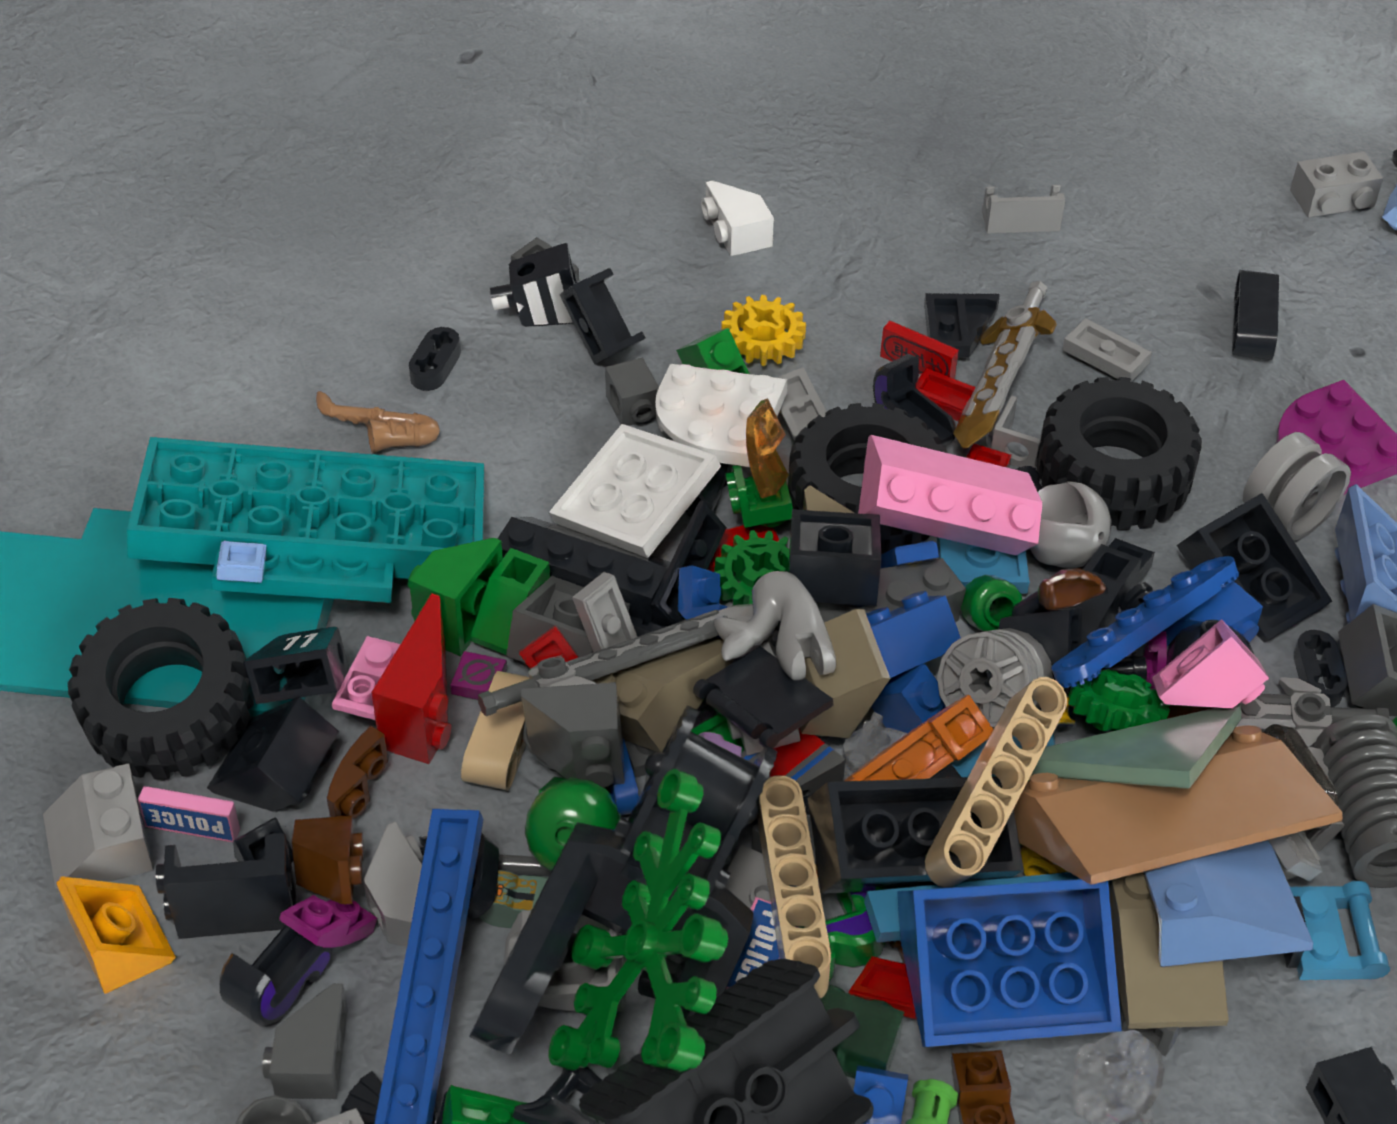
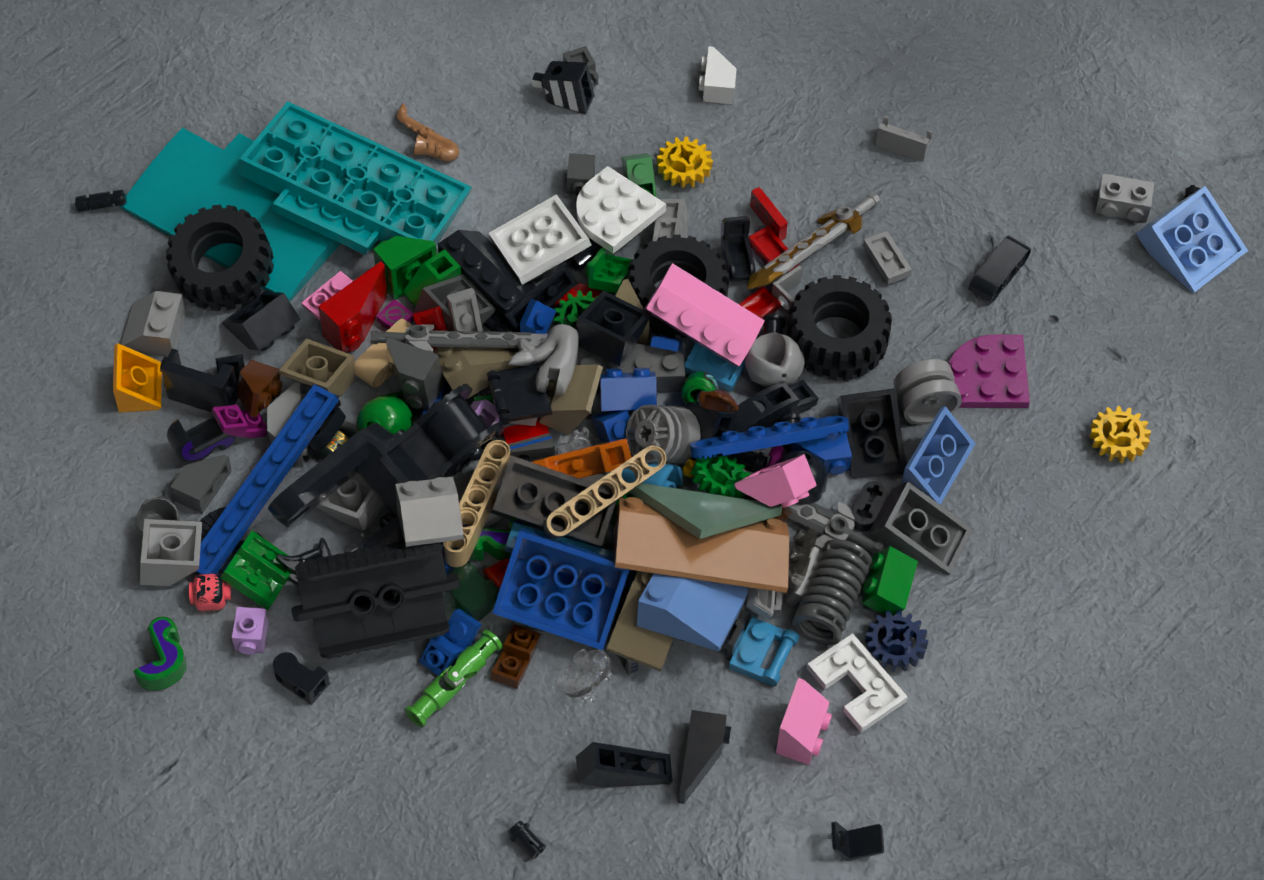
camera: 25 degrees right, 10 degrees up
(189, 814) = (203, 333): tile -> none
(241, 561) = (292, 201): light blue tile -> none
(308, 661) = (301, 277): black torso -> none
(349, 786) = (286, 350): reddish brown slope -> none
(413, 782) = (320, 366): none -> dark tan slope
(442, 361) = (483, 107): black beam -> none
(598, 317) = (587, 118): black panel -> none
(648, 943) = (368, 500): green plant -> none
(762, 438) = (616, 247): clear orange slope -> none
(766, 919) = (429, 511): none -> light grey slope
(959, 318) = (809, 201): black wing -> none

